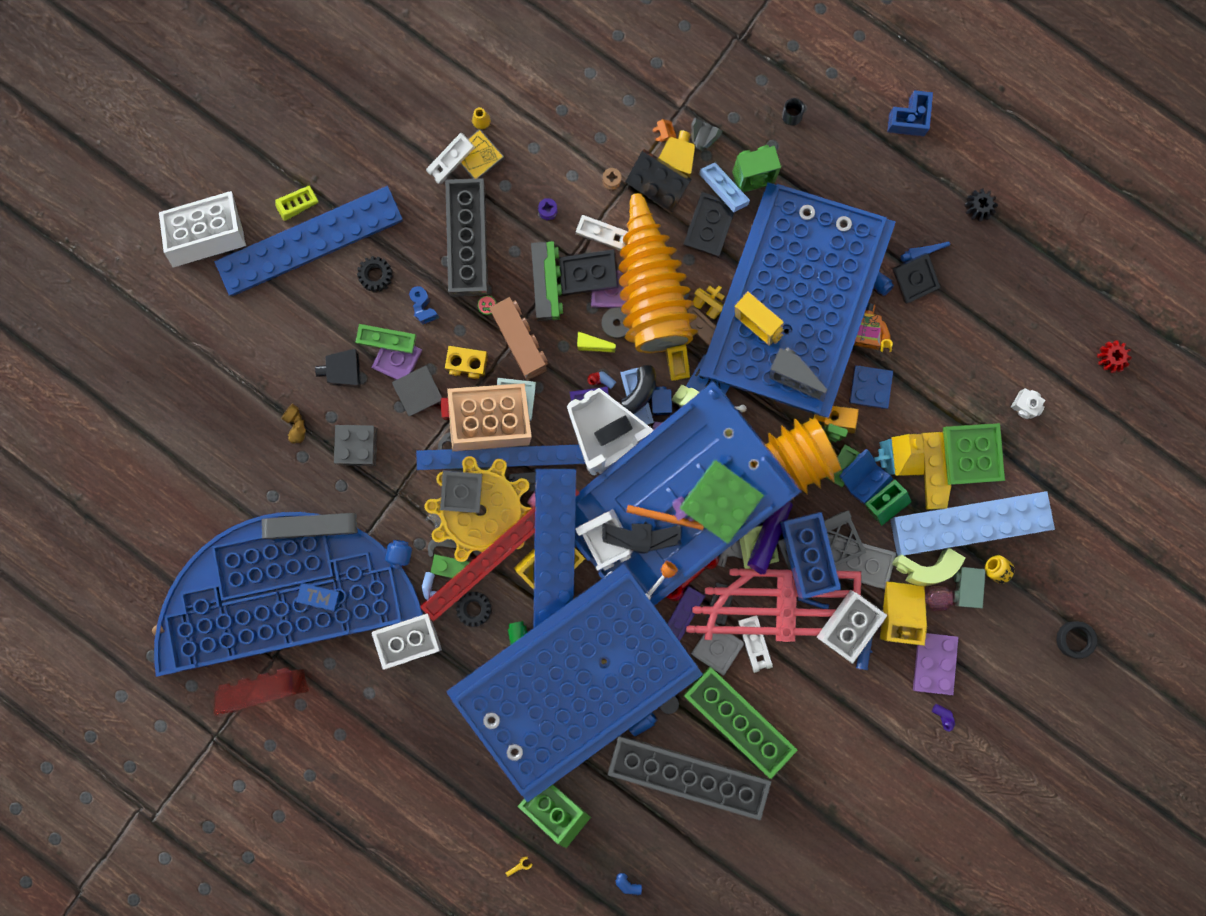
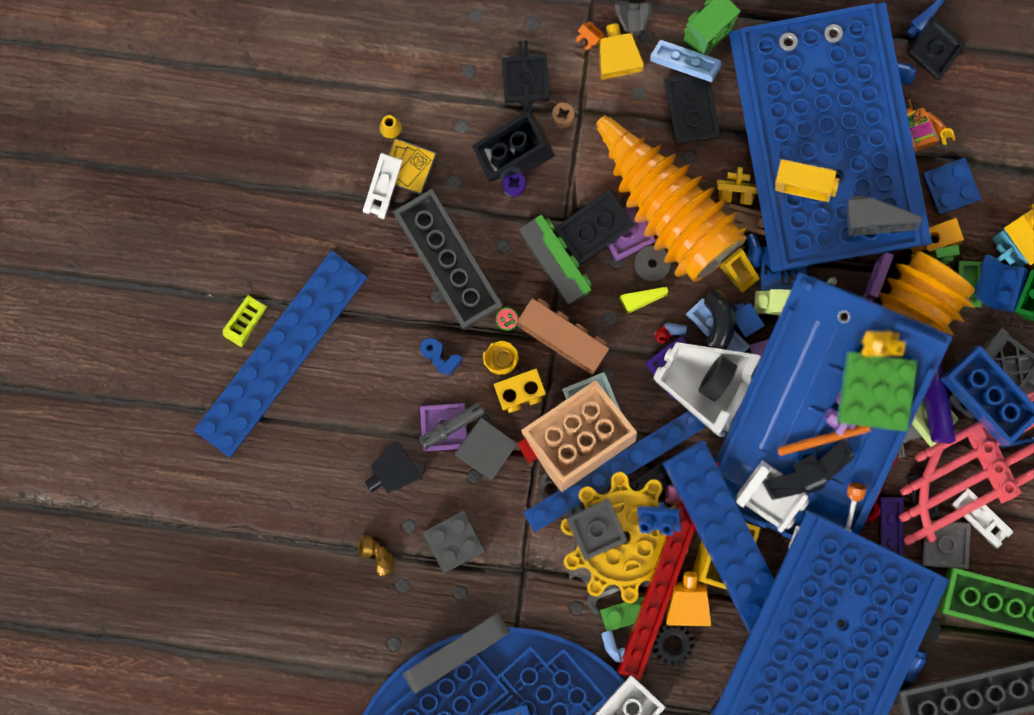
camera: 30 degrees left, 0 degrees up
(201, 229) = (160, 403): white slope -> none
(364, 269) = (368, 337): black tyre -> none
(385, 339) = (422, 413): bright green plate -> none
(398, 554) = (563, 630): blue head -> none
(400, 359) = (442, 431): none -> dark grey pin
(465, 330) = (500, 357): none -> yellow hair
(501, 585) = (688, 603): none -> light orange torso
(512, 509) = (659, 518): none -> blue hips
(516, 631) = (732, 643): green brick -> none
(561, 182) = (514, 148): none -> black slope
(599, 137) = (525, 78): none -> black plate
(600, 232) = (585, 177): white plate -> none
(658, 180) = (613, 91): black plate -> none
(697, 354) = (755, 251): none -> blue arm
(744, 467) = (882, 344): none -> yellow hips
(776, 422) = (877, 277): none -> medium lavender tile

